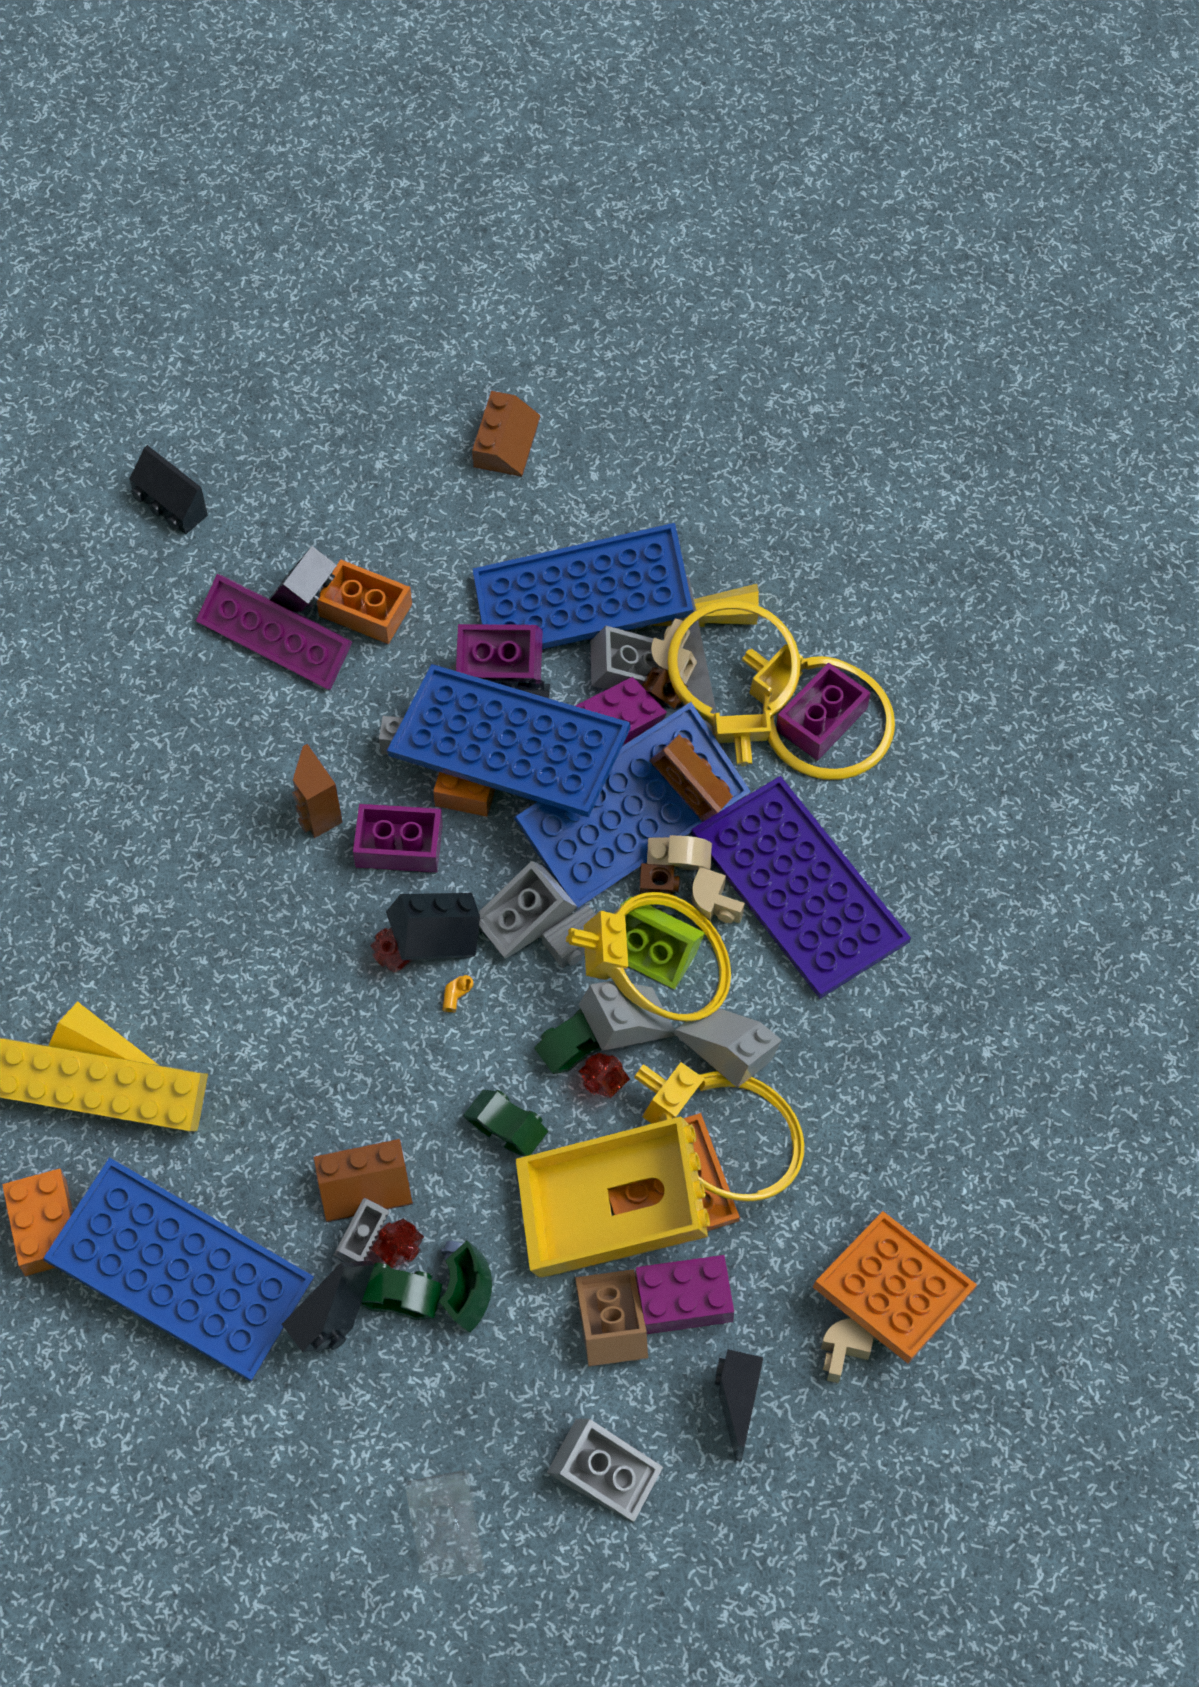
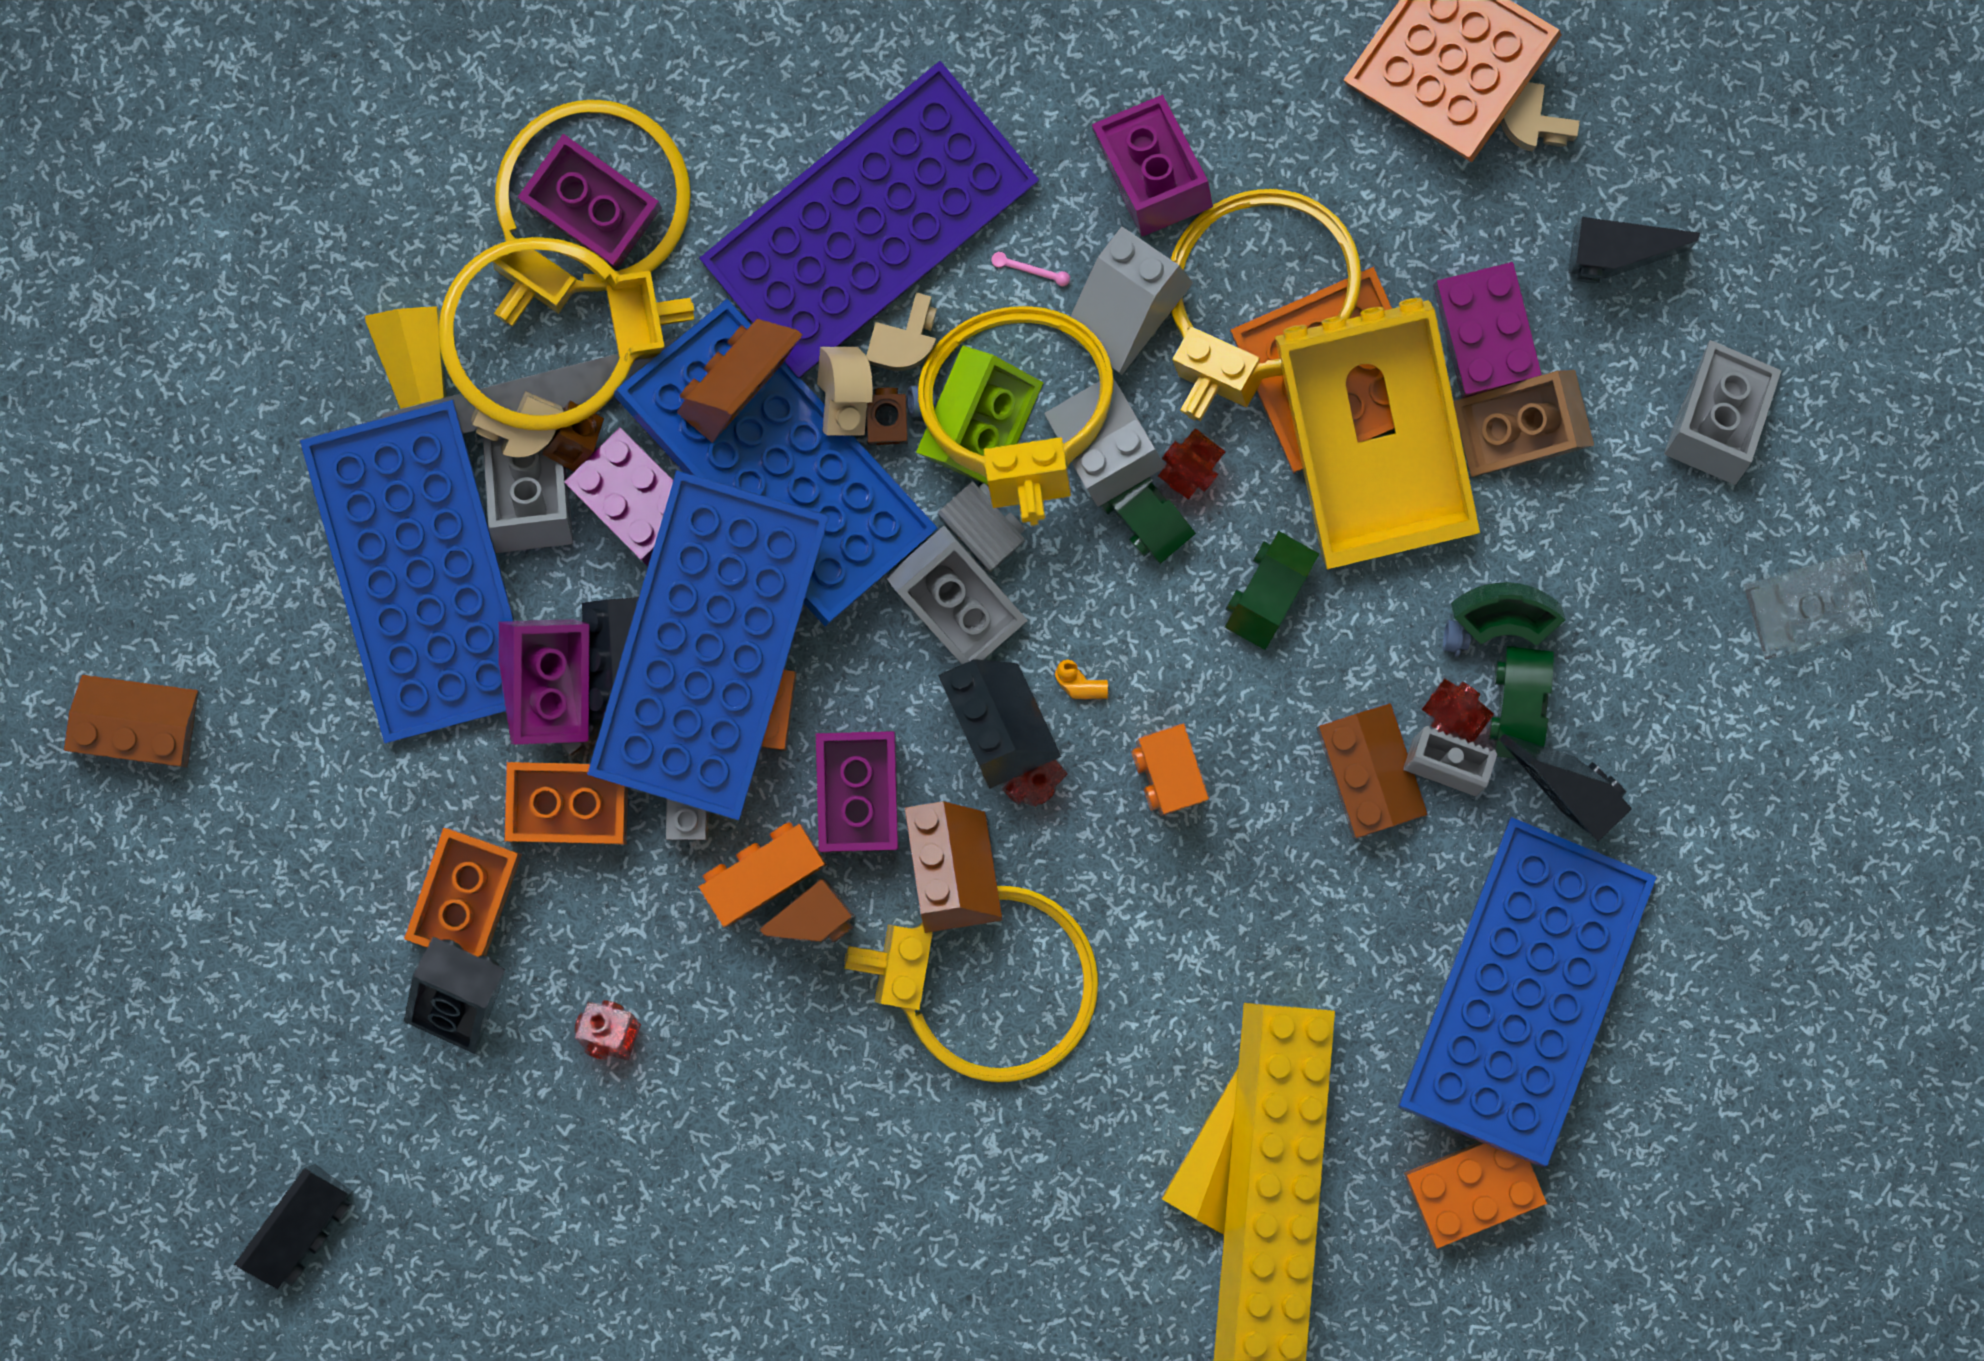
camera: 90 degrees left, 25 degrees up
(261, 676) = (607, 1030): none -> clear red brick
(264, 852) = (903, 974): none -> yellow brick
(274, 631) = (527, 1025): magenta plate -> none
(336, 888) = (952, 866): none -> dark orange slope
(349, 769) = (761, 873): none -> orange brick
(381, 1030) = (1170, 770): none -> orange brick
(411, 655) = (563, 805): none -> orange brick
(765, 969) = (1000, 260): none -> bright pink hinge
(825, 1072) = (1153, 165): none -> magenta slope

